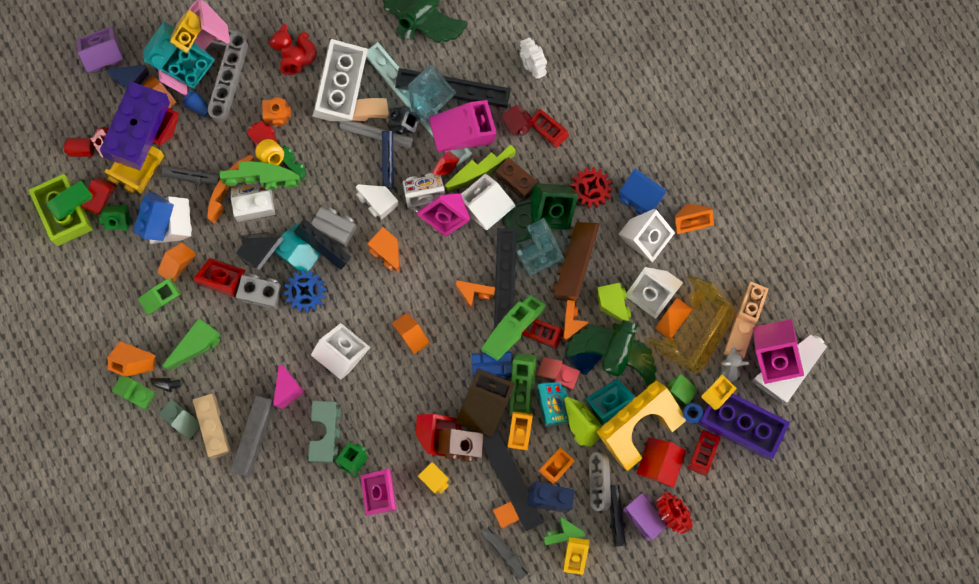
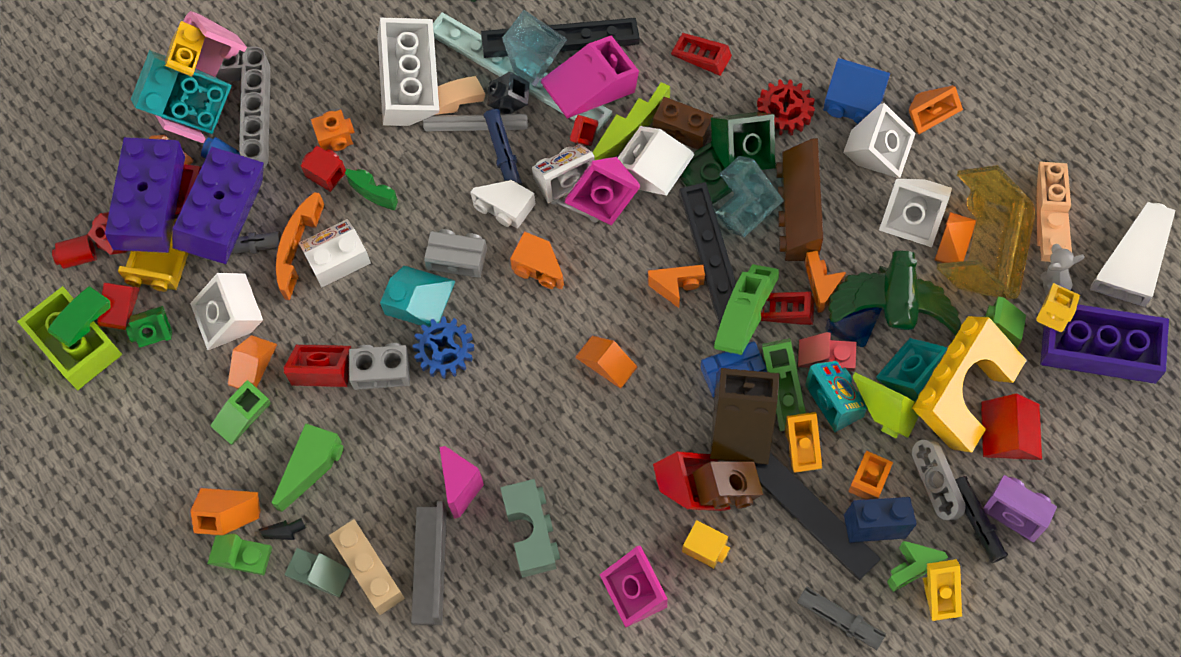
camera: 10 degrees left, 10 degrees down
(99, 49) = (71, 123): medium lavender slope -> none
(126, 74) = (110, 144): dark blue slope -> none
(153, 217) = (204, 306): blue slope -> none
(182, 145) = (218, 205): none -> dark purple brick
(257, 248) = (360, 310): black slope -> none
(269, 152) = (340, 180): yellow head -> none
(269, 175) = (347, 206): bright green slope -> none
(293, 56) = (334, 58): red animal -> none
(322, 244) = (448, 278): black piece -> none
(340, 351) = (516, 412): white slope -> none
(345, 458) = (571, 555): green brick -> none
(506, 514) = (824, 565): orange tile -> none
(517, 120) = (659, 52): dark red brick -> none
(612, 301) = (867, 240): lime slope -> none
(674, 513) = (1059, 488): red gear -> none
(693, 407) = (1033, 342): blue cone -> none
(699, 468) = (1064, 417): red slope -> none
(778, 351) = (1116, 232): dark pink slope -> none

